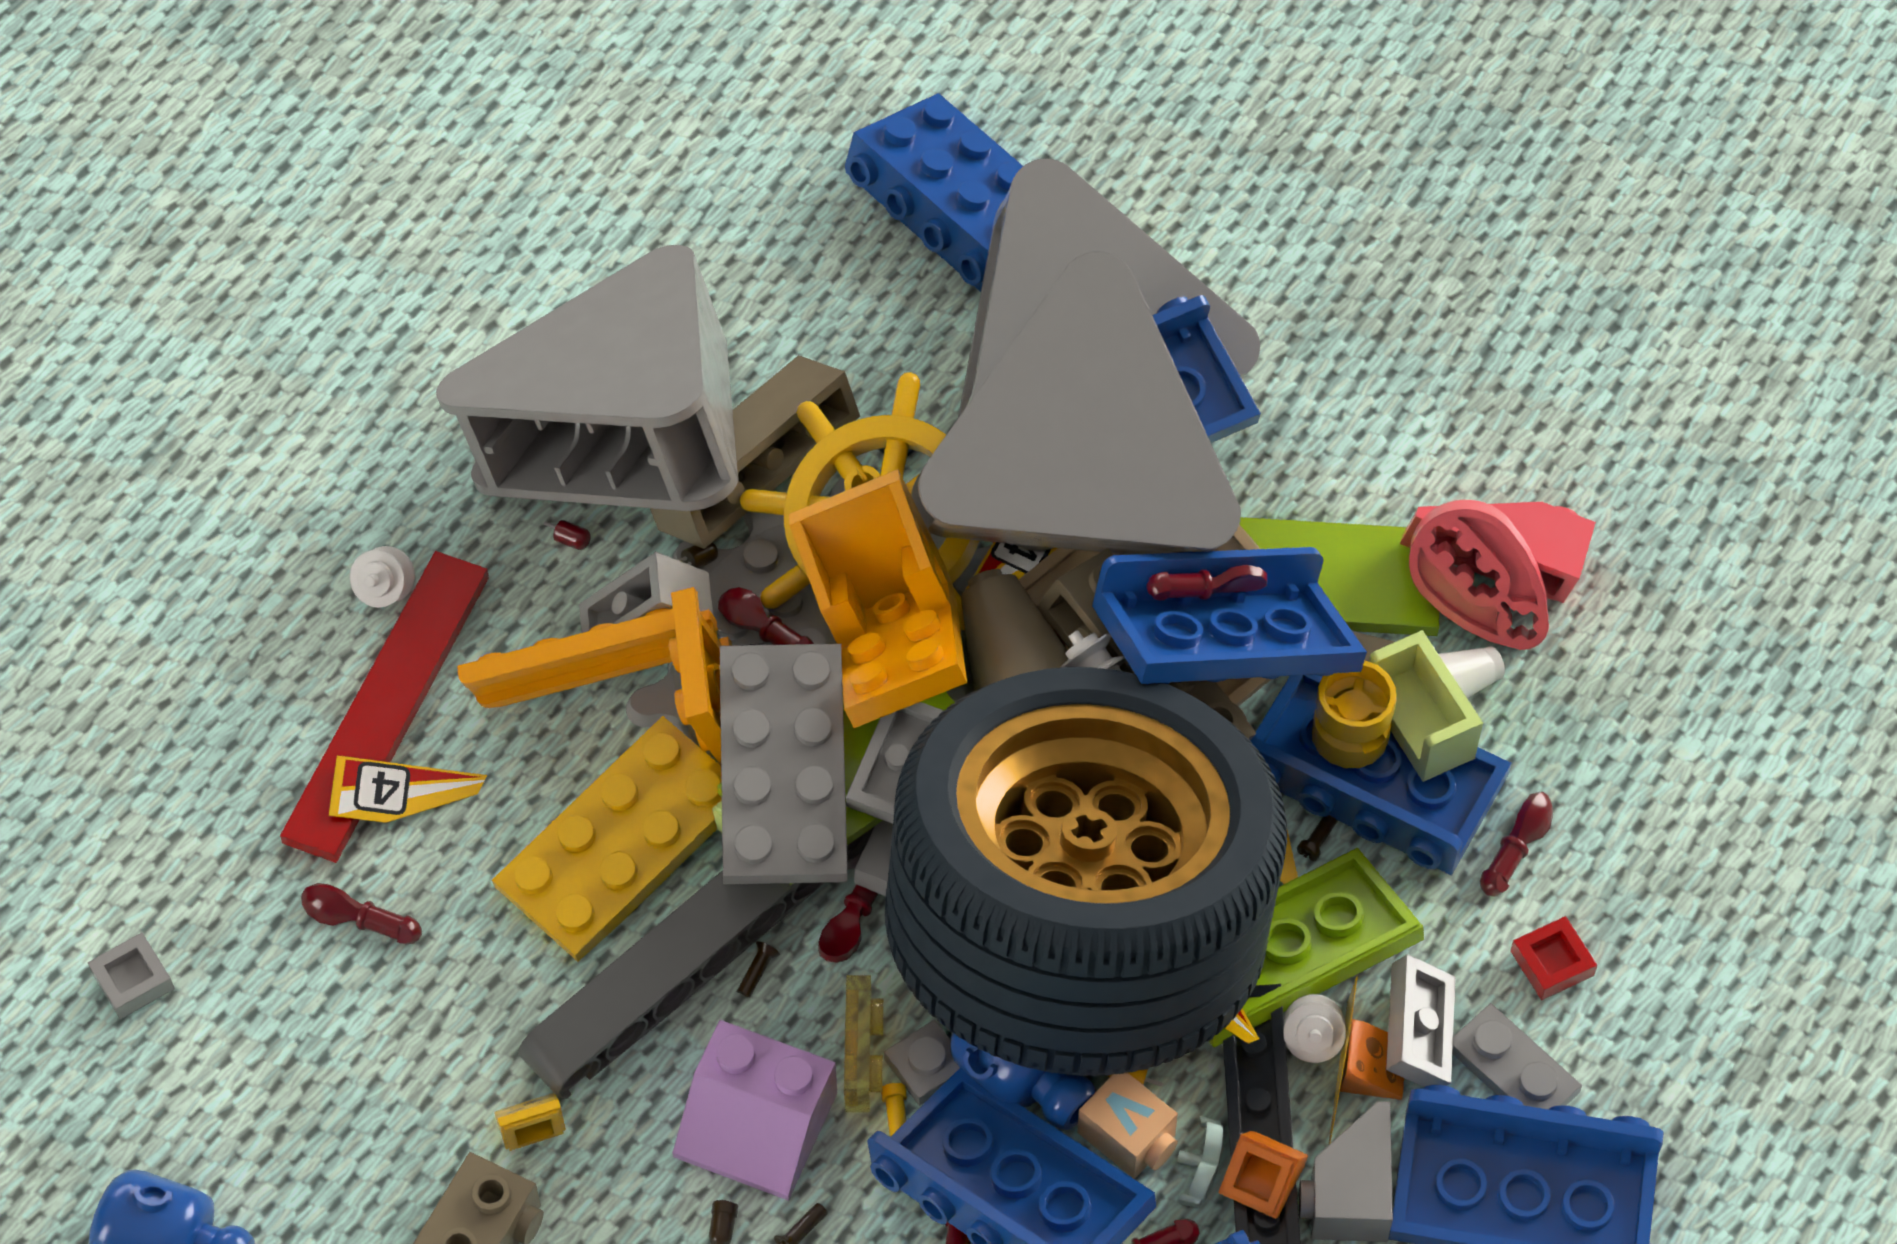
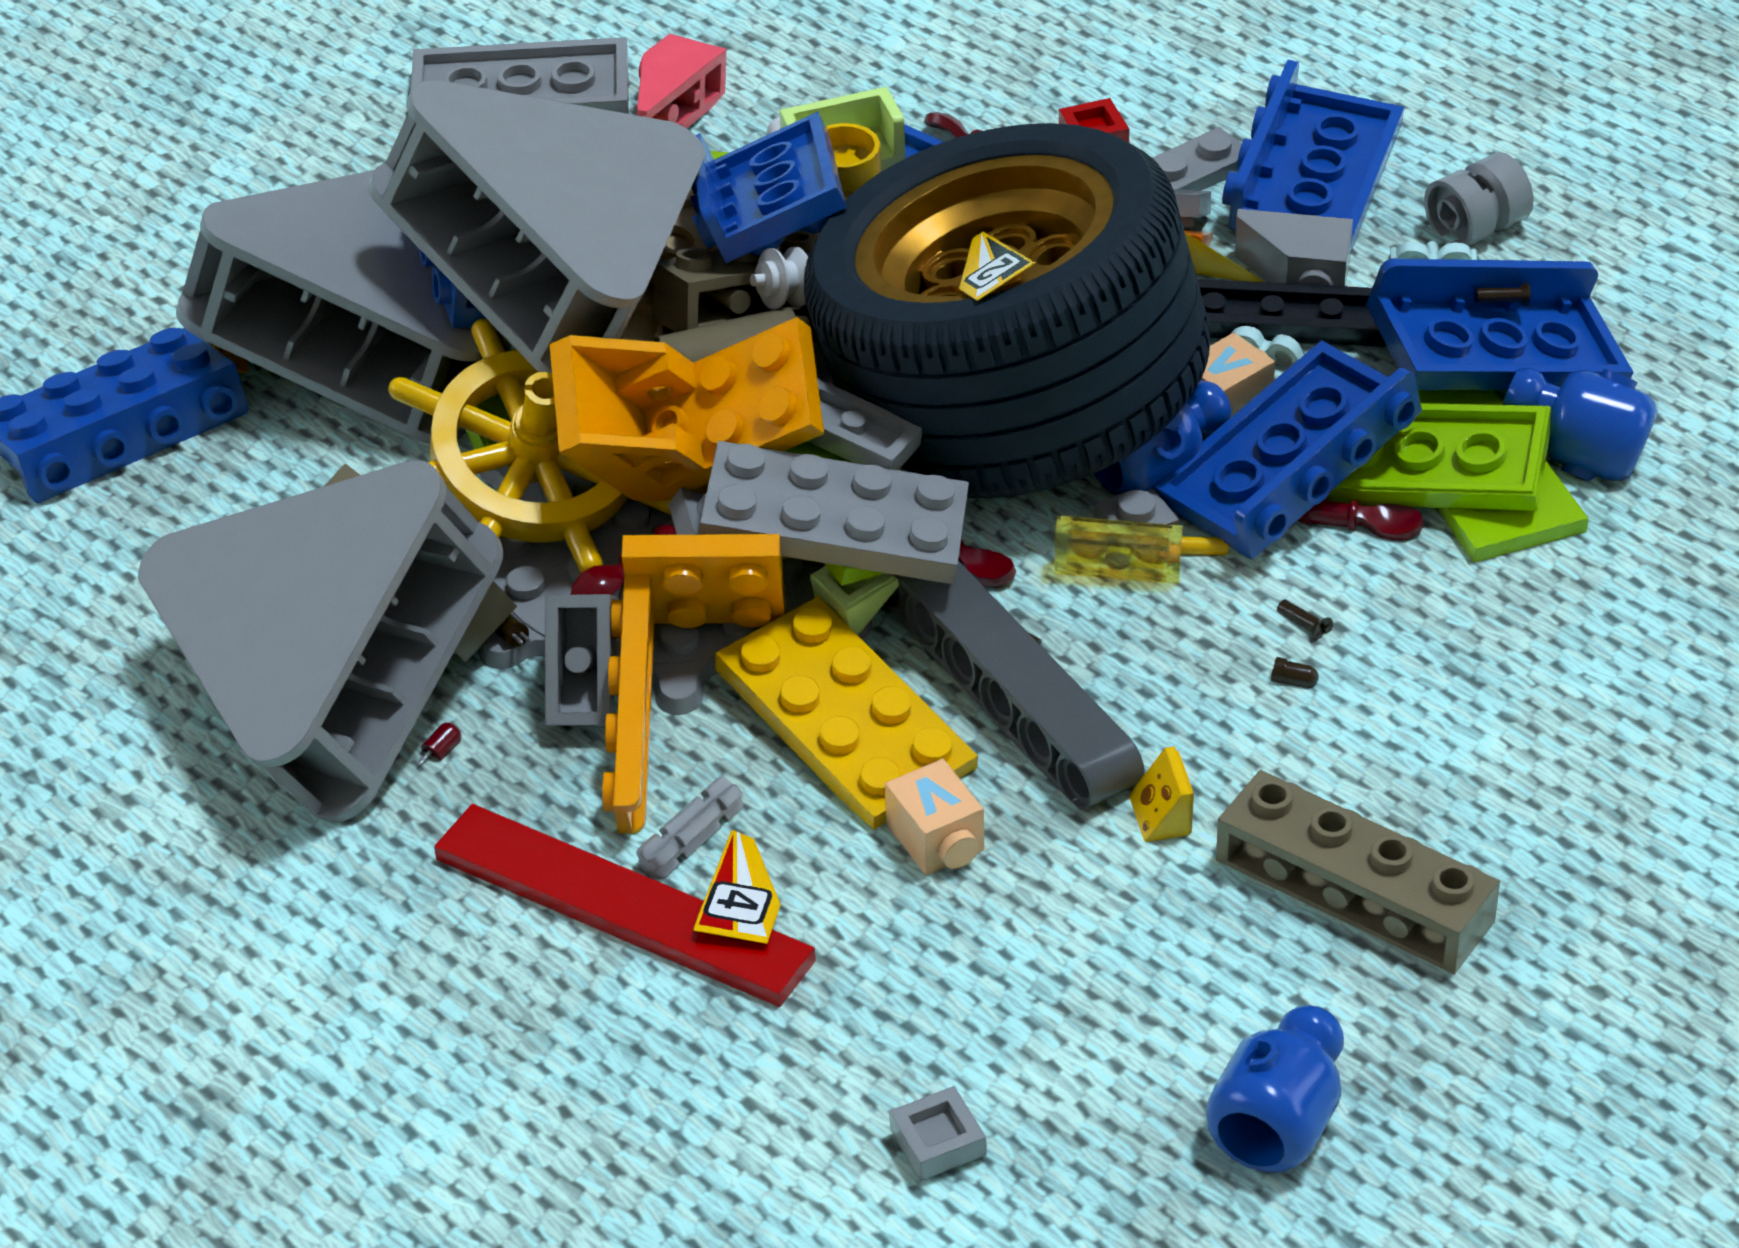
camera: 80 degrees left, 15 degrees down
(334, 906) = (875, 955): dark red piece -> none
(382, 576) = (459, 887): white wheel -> none
(477, 740) = (689, 828): none -> light grey axle
(484, 927) = (935, 817): none -> light nougat brick
(755, 1109) = (1181, 623): lavender slope -> none
(998, 810) = (990, 266): none -> sticker
(1202, 585) = (727, 182): dark red piece -> none
(1262, 1173) = (1294, 296): orange slope -> none
(1499, 547) = (735, 96): coral piece -> none
(1520, 410) = (563, 71): none -> light grey plate

